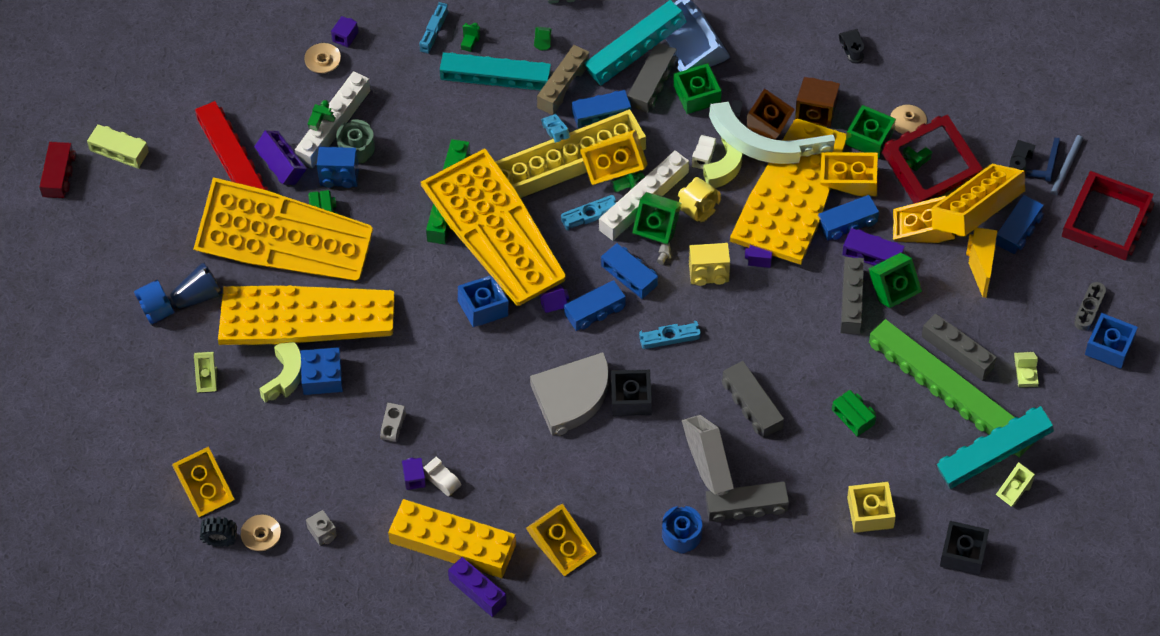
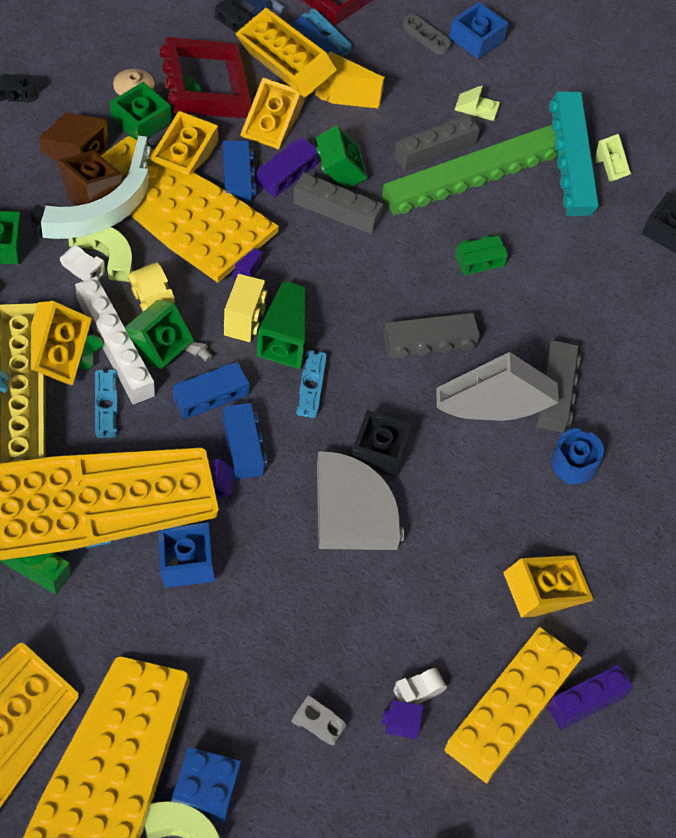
camera: 80 degrees left, 0 degrees up
(711, 296) = (283, 328): none -> green slope
(871, 507) = (603, 279): light yellow brick -> none
(1039, 240) = (323, 25): none -> dark azure piece

